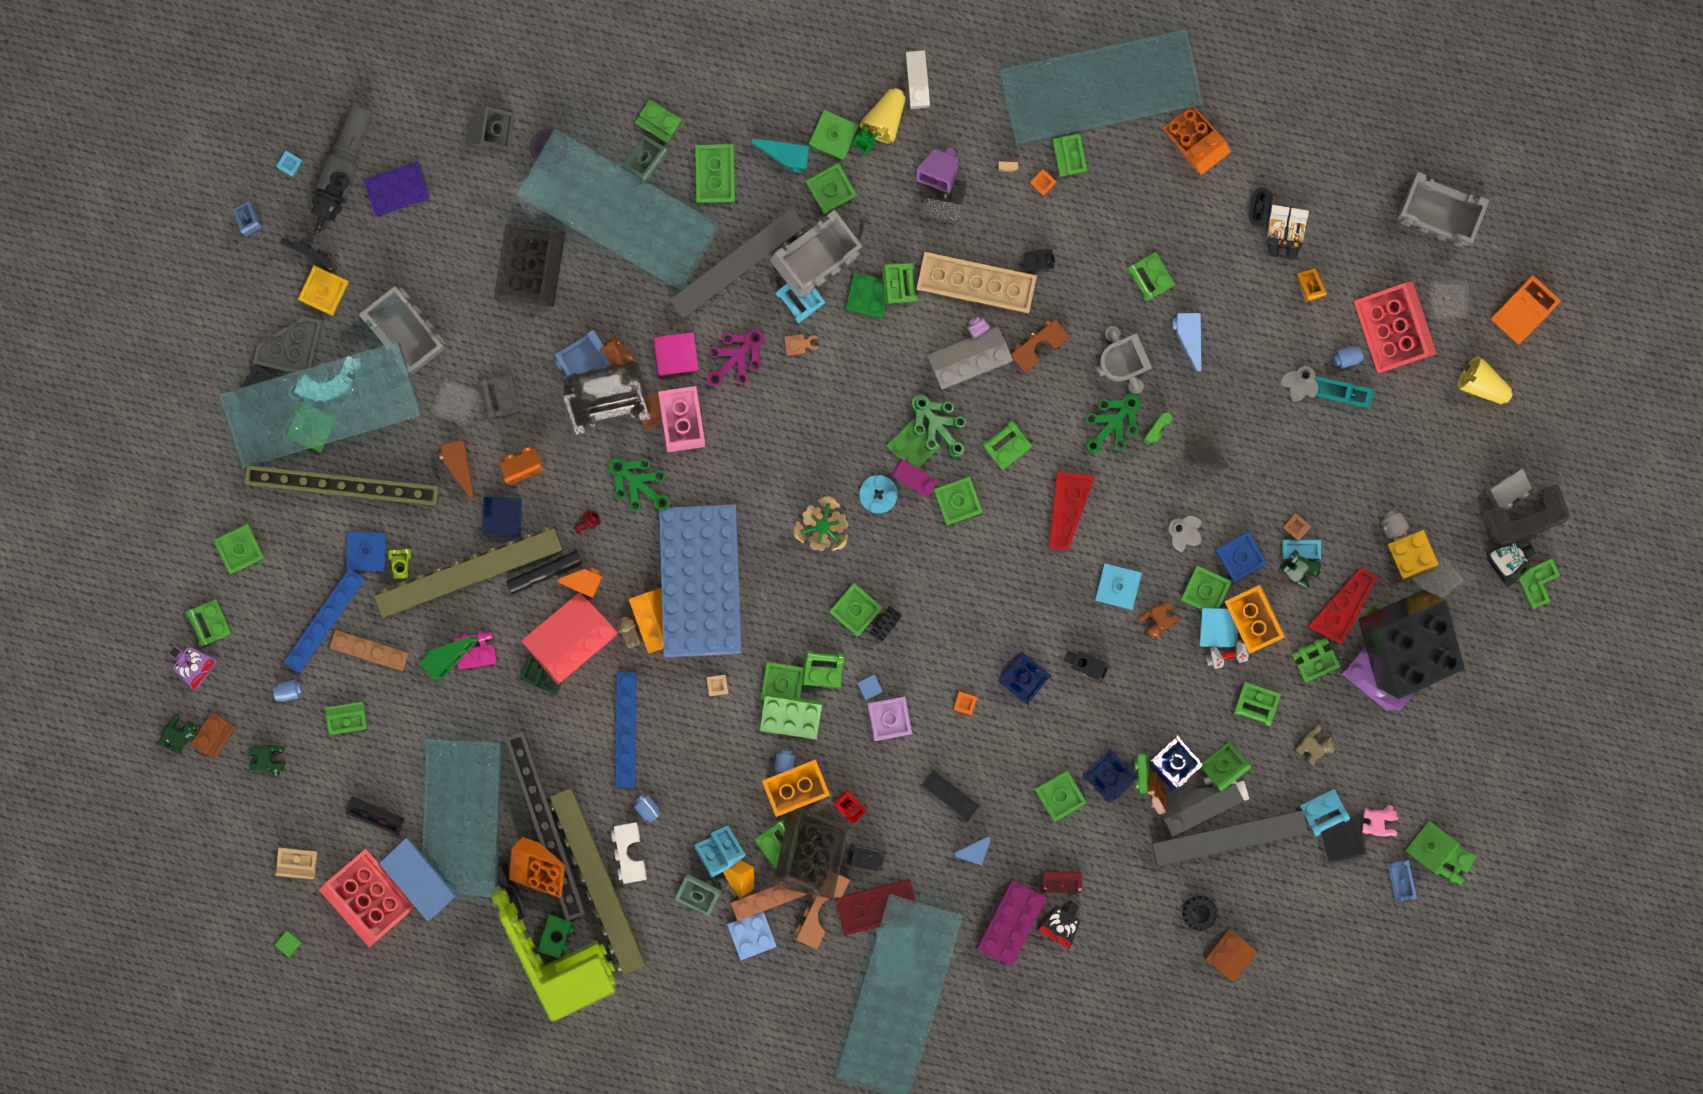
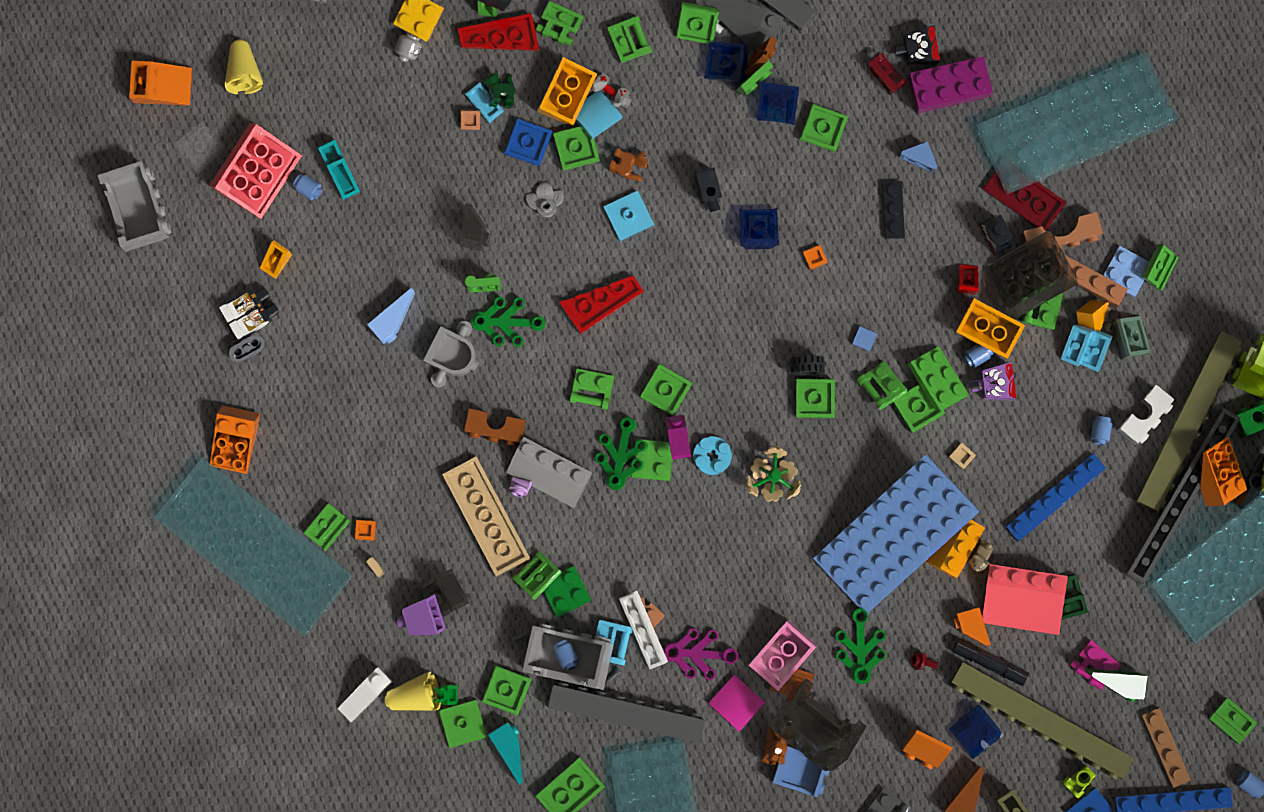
camera: 135 degrees left, 5 degrees down
(733, 962) = (1160, 267): none -> bright green plate
(751, 758) = (996, 383): none -> torso
(789, 329) = (643, 630): none -> white tile
(819, 254) = (566, 655): none -> medium blue brick
(889, 718) = (875, 304): lavender plate -> none
(1039, 260) = (428, 482): black bracket -> none
(1156, 273) = (364, 384): bright green plate -> none
(1299, 385) = (361, 205): light grey plate -> none

